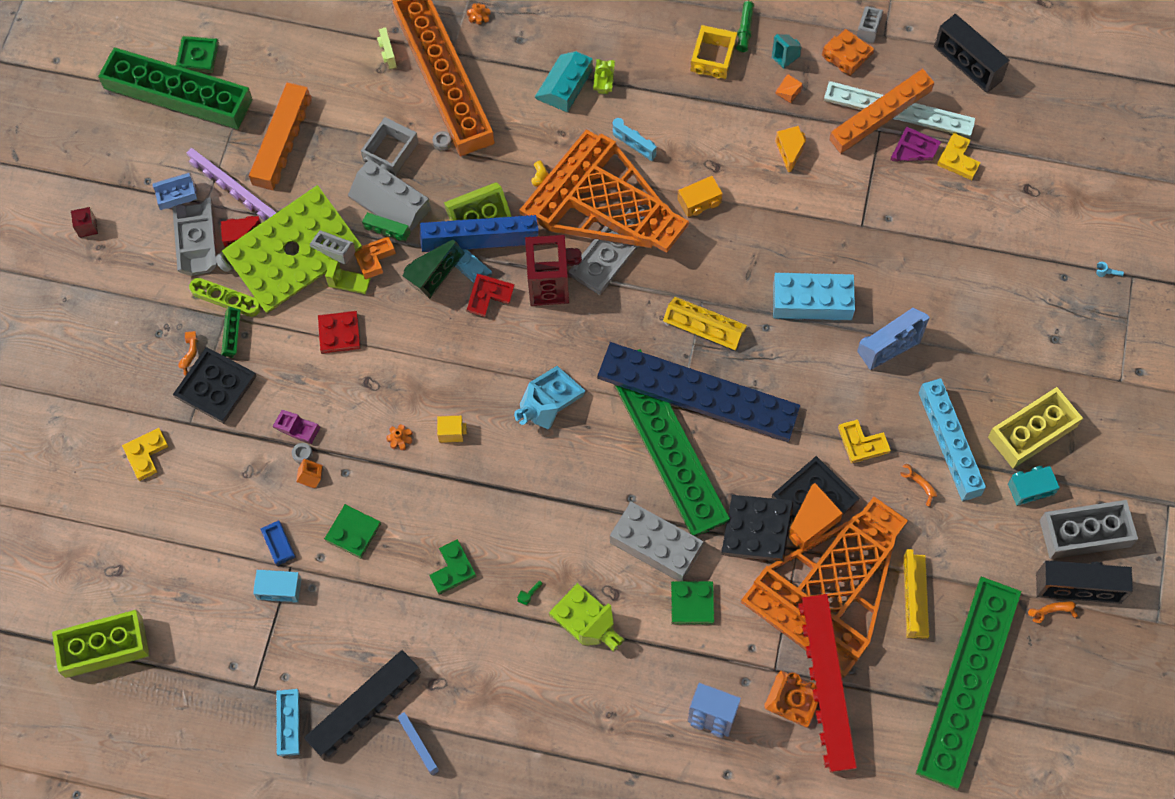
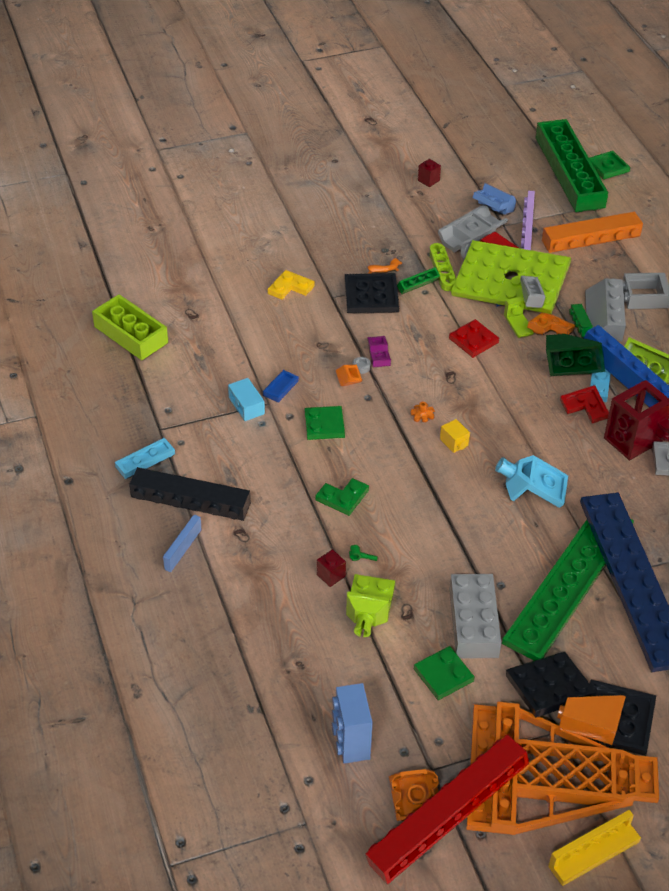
camera: 55 degrees right, 20 degrees down
(532, 629) = (331, 568): none -> dark red brick

